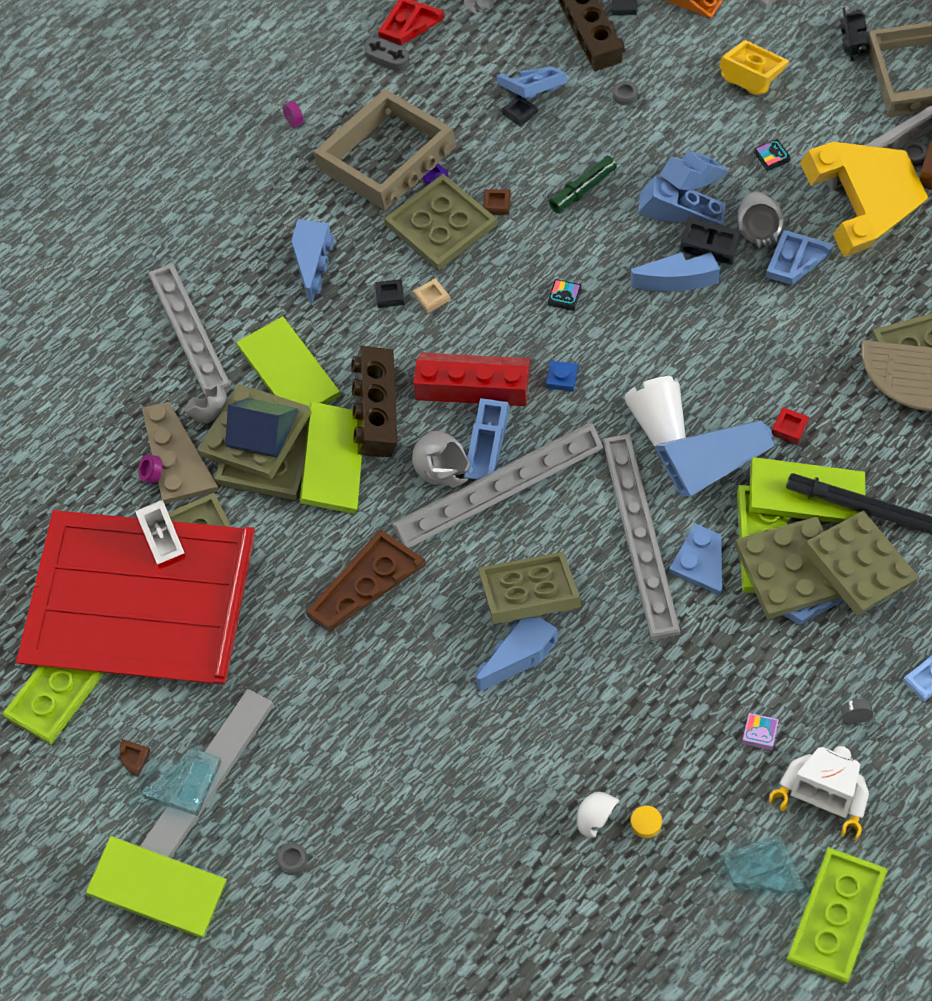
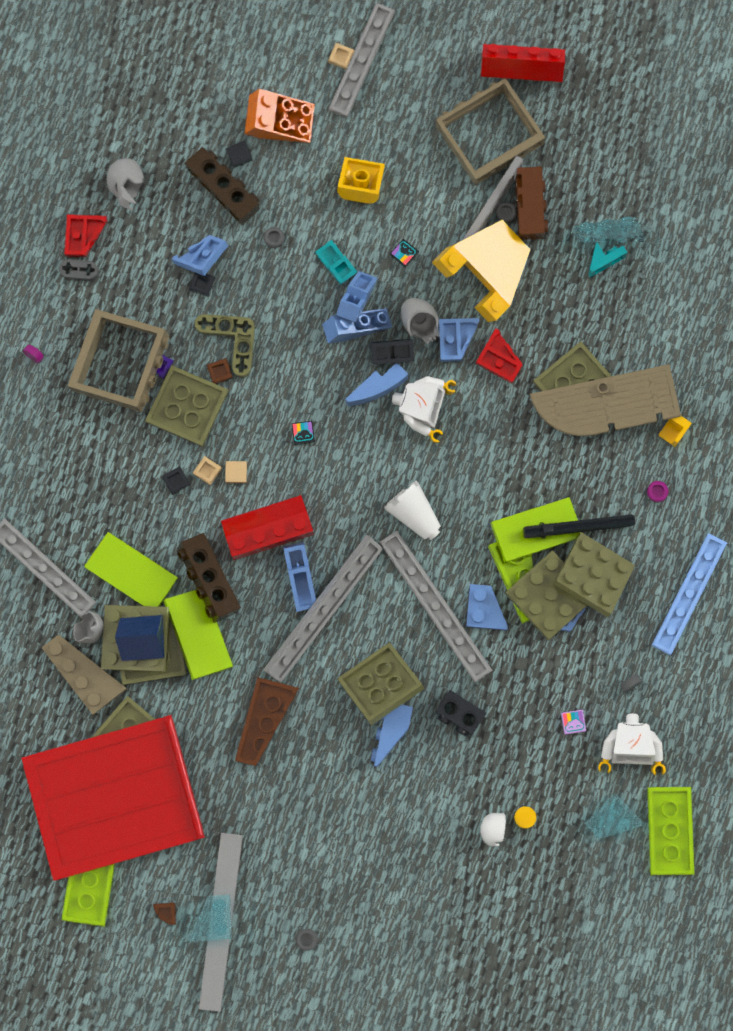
camera: 25 degrees left, 20 degrees up
(150, 469) = (72, 694): magenta tile -> none
(156, 887) = (228, 999): lime tile -> none
(159, 532) = (110, 749): white slope -> none
(310, 247) = (101, 467): medium blue slope -> none
(439, 458) = (273, 607): light grey helmet -> none
(464, 308) = (236, 472): none -> tan tile
(536, 173) = (240, 337): none -> olive beam
(561, 200) = (273, 341): dark green pin -> none
(562, 376) = (329, 501): blue plate -> none
(621, 661) = (463, 708): none -> black brick
(685, 135) = (335, 262): none -> teal slope
(707, 457) = (463, 527): medium blue slope -> none
(723, 307) = (422, 404): none -> white torso
(790, 425) = (504, 480): red plate -> none
(840, 295) = (499, 358): none -> red wing
(854, 42) = (420, 114): black hinge -> none

